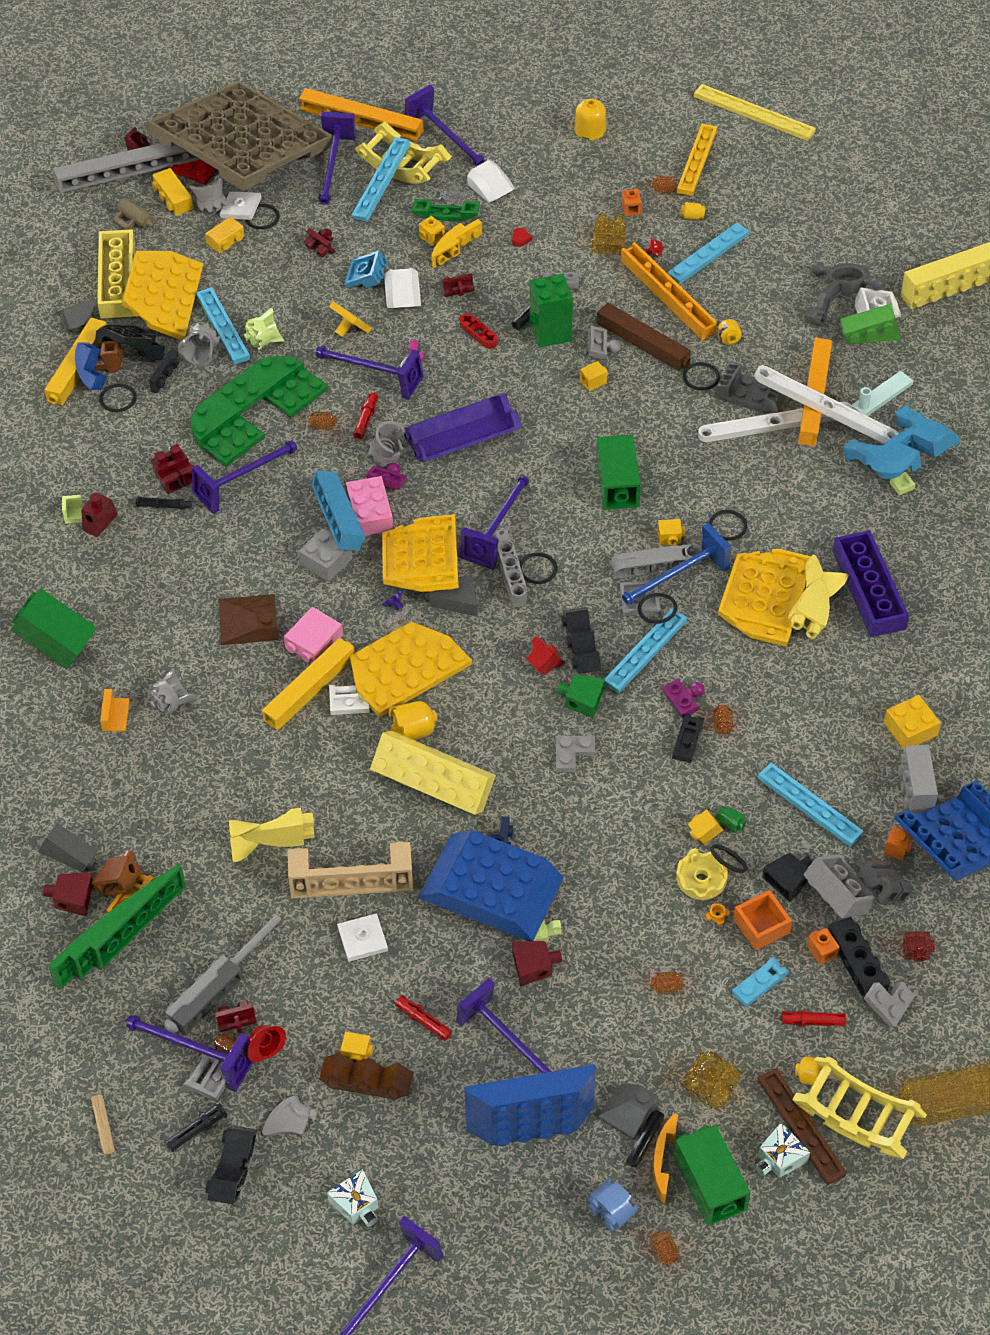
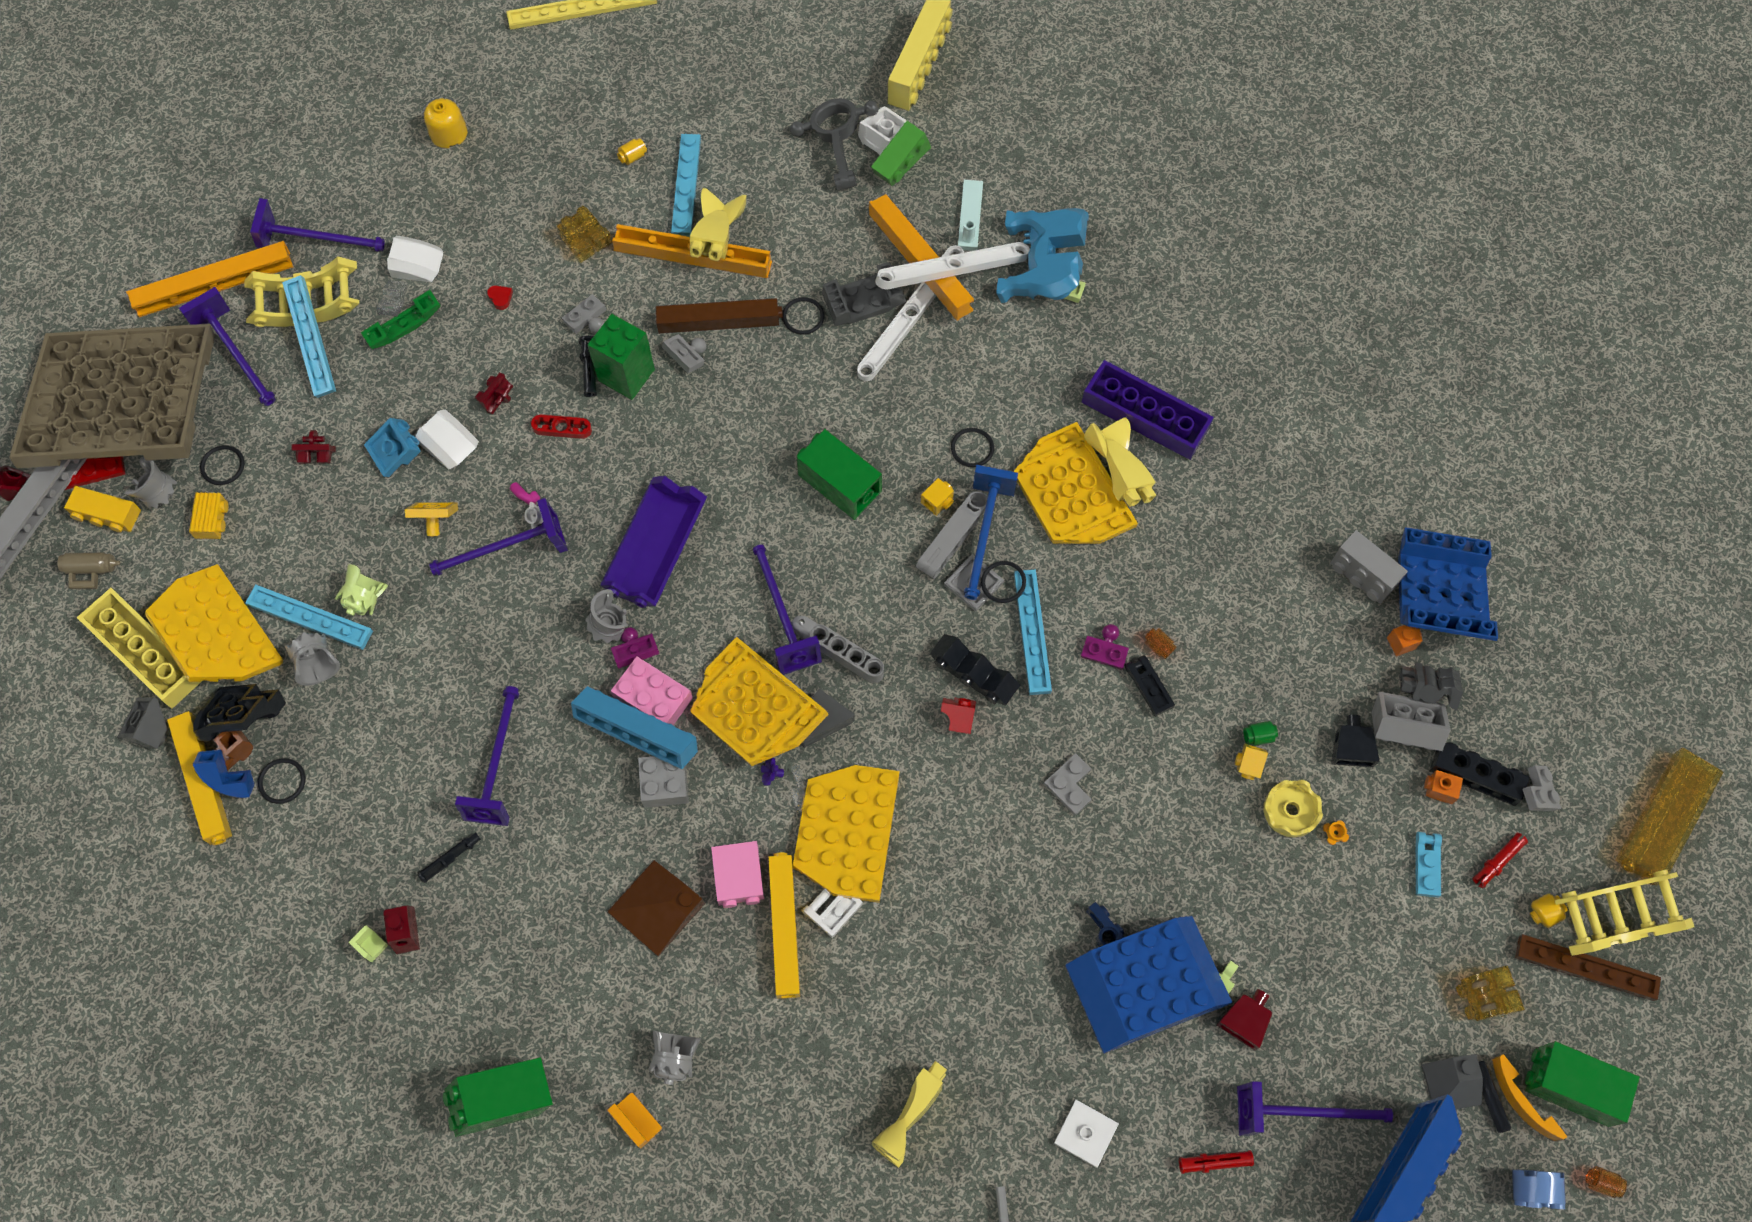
camera: 45 degrees left, 15 degrees up
(164, 370) = (302, 713): black hinge -> none
(172, 469) = (425, 814): dark red hips -> none
(241, 205) = (190, 472): white plate -> none
(278, 379) = (409, 724): green plate -> none
(322, 420) = (514, 640): clear orange brick -> none
(350, 880) = (1058, 1039): tan plate -> none
(368, 410) = (545, 594): red pin -> none
(413, 720) = (918, 883): yellow cylinder -> none
(431, 230) = (412, 354): yellow brick -> none
(432, 772) = (989, 919): light yellow brick -> none
(451, 242) = (444, 350): yellow slope -> none
(543, 555) = (861, 608): black tyre -> none
(583, 694) = (1027, 721): green torso -> none
(593, 376) = (714, 391): yellow brick -> none
(631, 202) = (567, 183): orange brick -> none
(655, 248) = (636, 215): red plant -> none
(664, 184) = (578, 142): clear orange brick -> none
(667, 982) = (1366, 935): clear orange brick -> none
(685, 284) = (712, 232): none -> light yellow hips
(697, 160) = (581, 94): yellow plate -> none
(724, 863) = (1298, 784): black tyre -> none
(729, 332) = (786, 251): yellow head -> none
(762, 920) = (1382, 808): orange piece -> none
(781, 1153) = (1600, 1008): torso -> none
(810, 805) = (1304, 662): medium azure plate -> none
(912, 722) = (1305, 515): yellow brick -> none
(917, 945) = (1508, 720): clear red brick -> none

